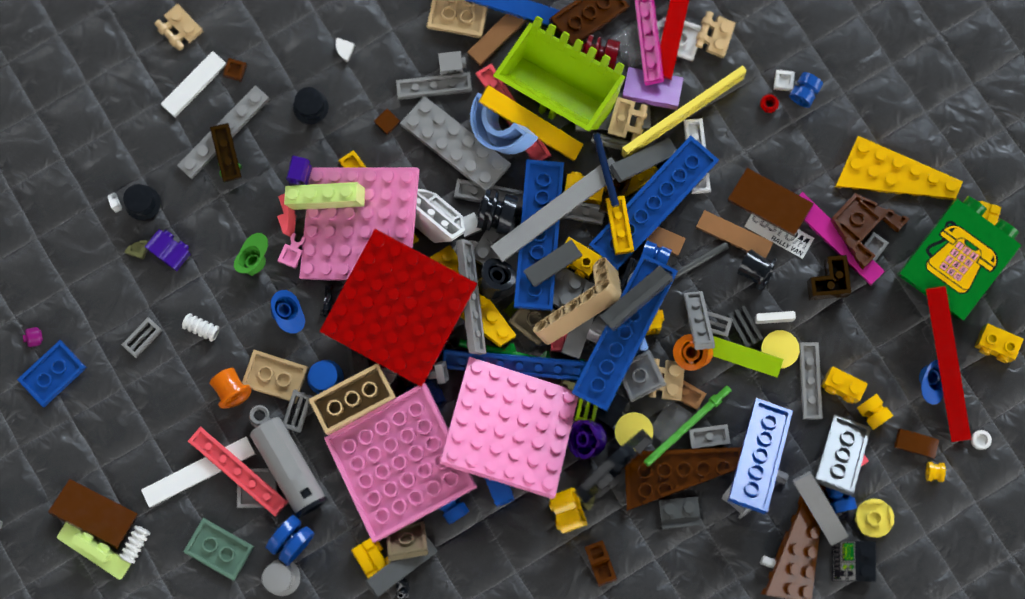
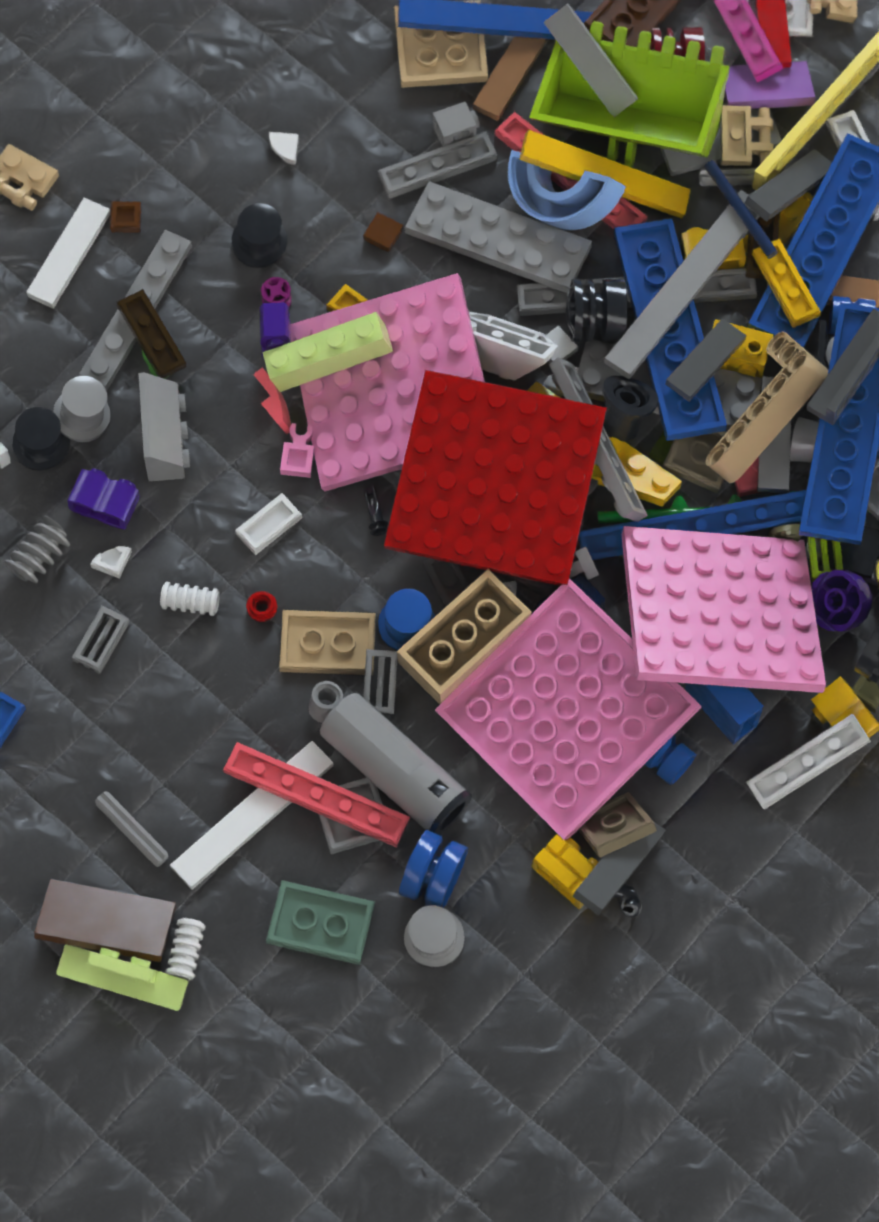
camera: 20 degrees left, 10 degrees down
(119, 273) = (37, 550): none -> light grey piece
(125, 460) = (131, 828): none -> light grey axle
(137, 249) = (55, 509): olive tile -> none
(163, 289) = (112, 561): none -> white tile
(171, 190) = (83, 409): none -> light grey piece
(214, 215) = (163, 428): none -> light grey slope
(230, 388) = (266, 673): orange piece -> none
(238, 339) = (261, 598): none -> red plate
(251, 256) = (238, 470): bright green piece -> none
(261, 291) = (268, 524): none -> white tile
(287, 311) = (318, 538): blue piece -> none
(311, 143) = (274, 288): none -> magenta wheel
(535, 534) = (808, 761): none -> white tile
(543, 47) = (590, 60): none -> light grey tile

